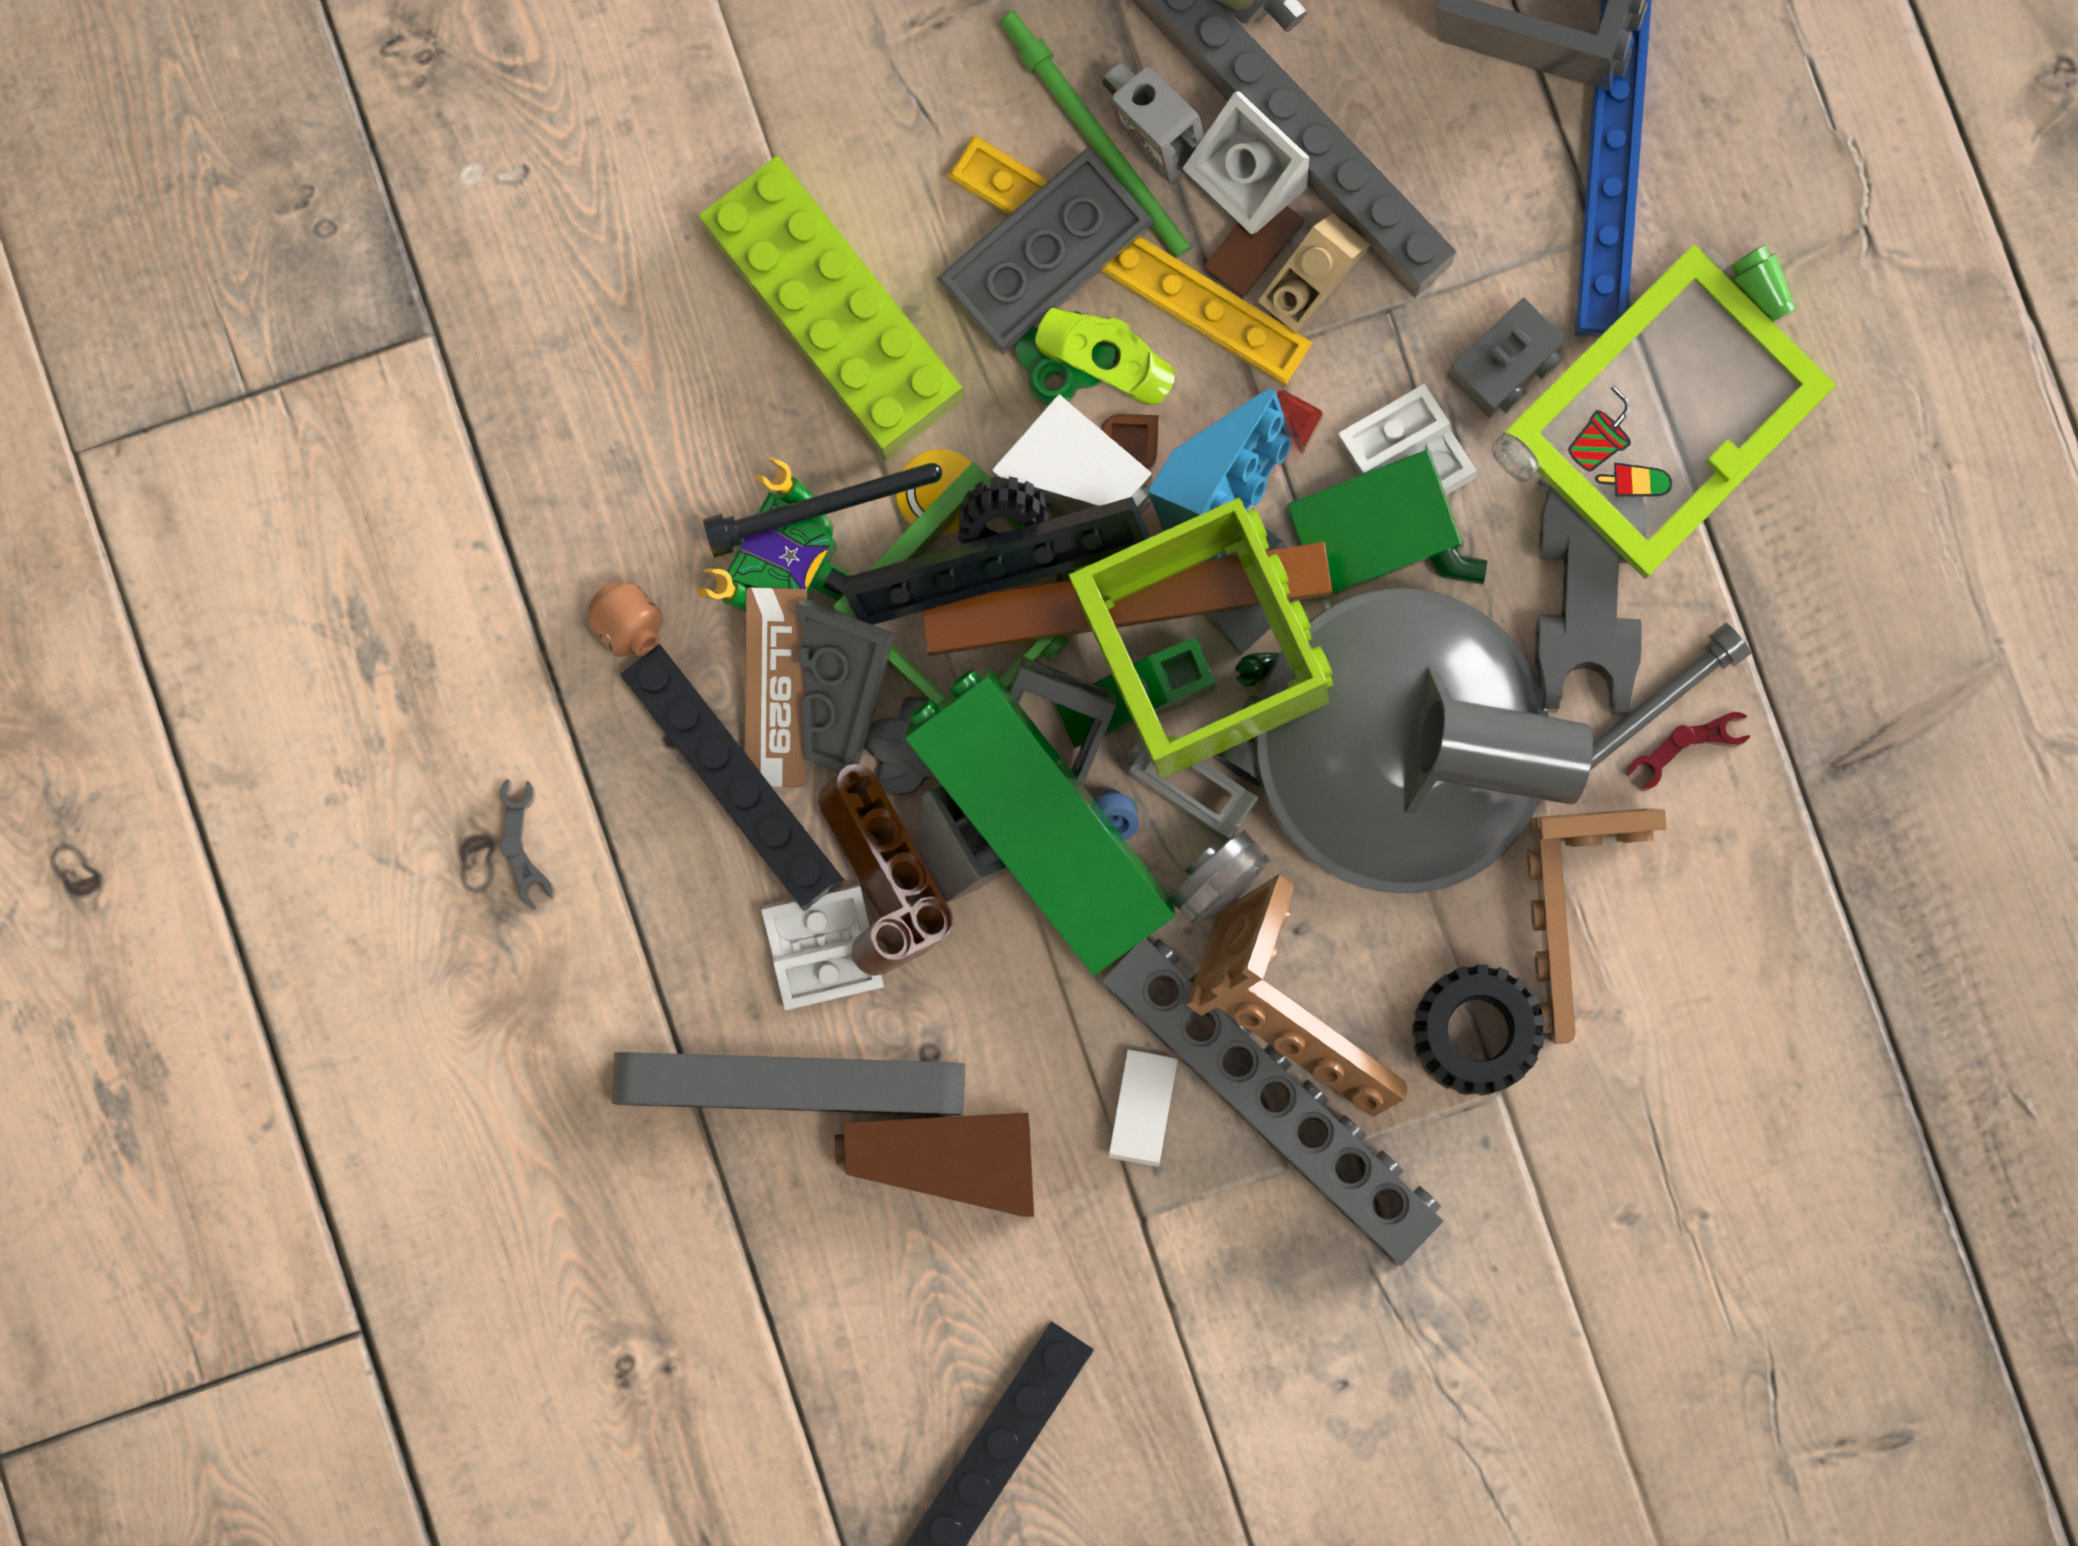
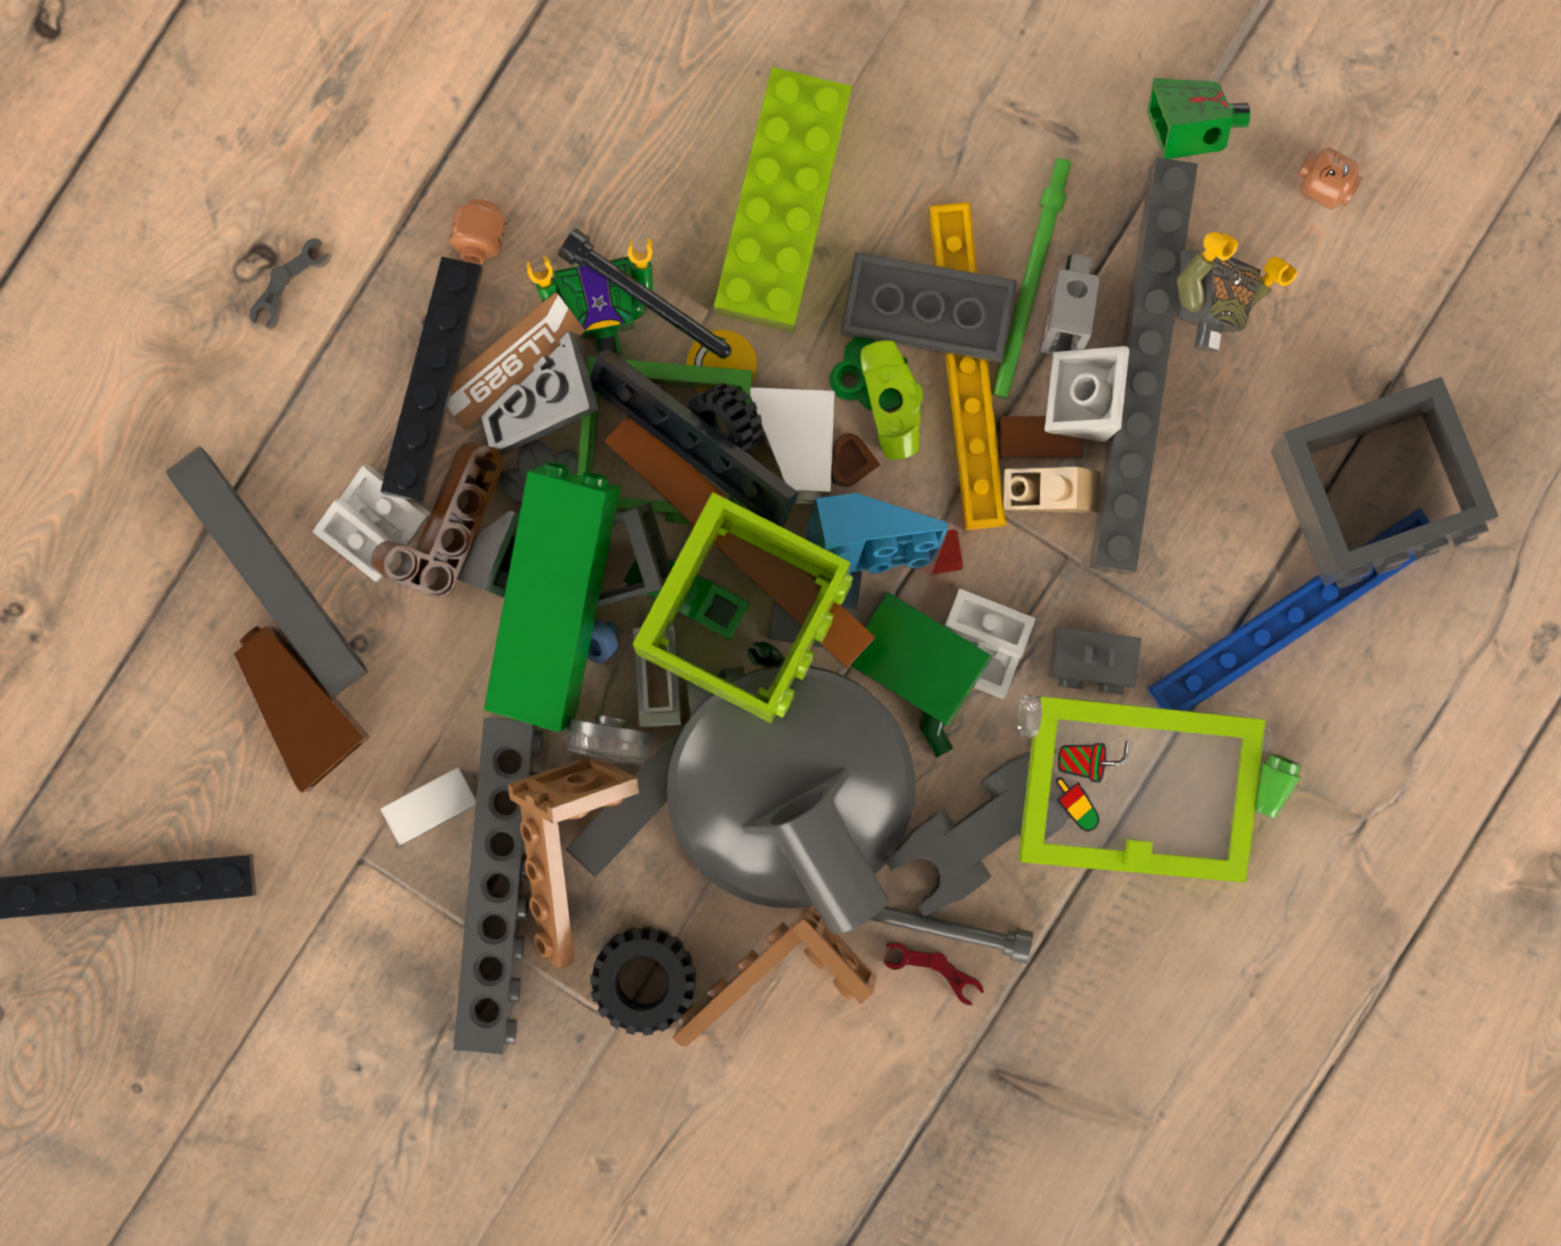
camera: 45 degrees right, 5 degrees up
(1307, 933) = (620, 823): none -> dark grey slope

